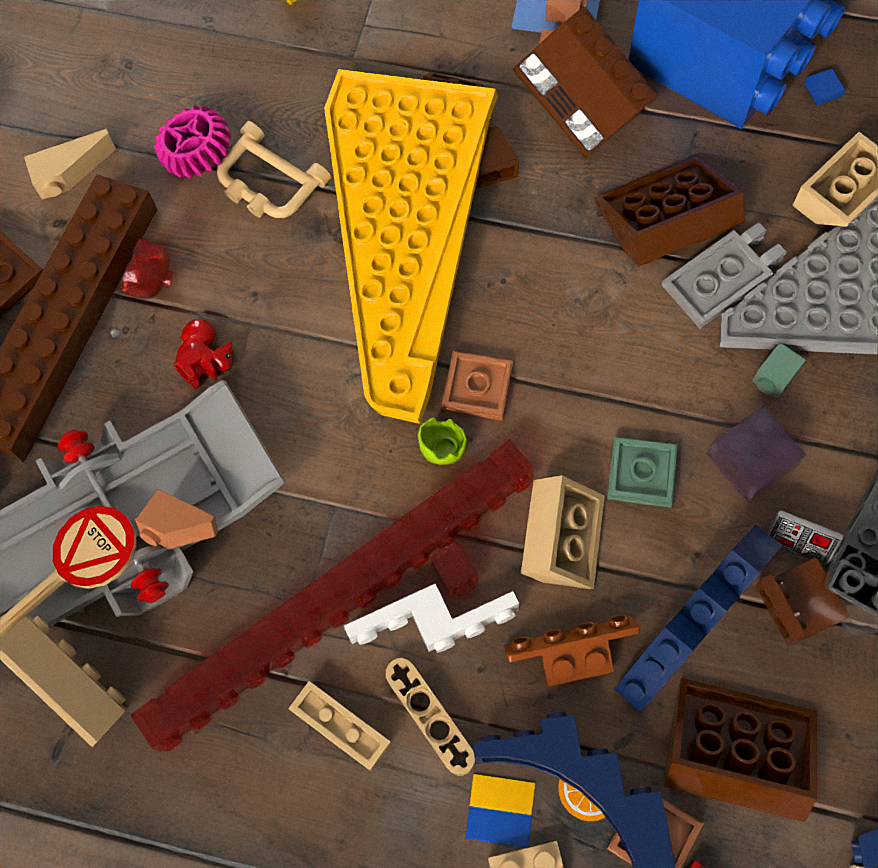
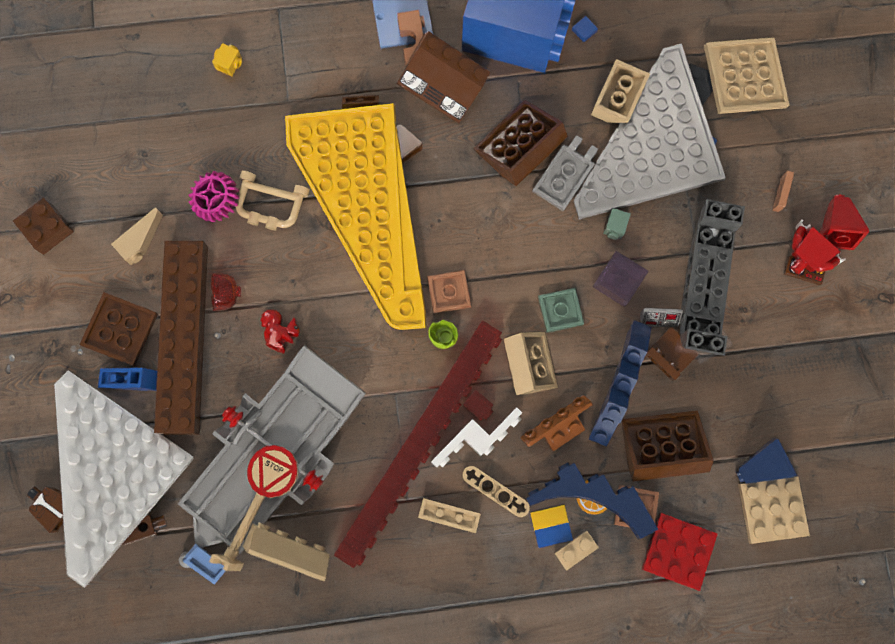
camera: 30 degrees left, 10 degrees up
(174, 522) = (312, 440): nougat slope -> none

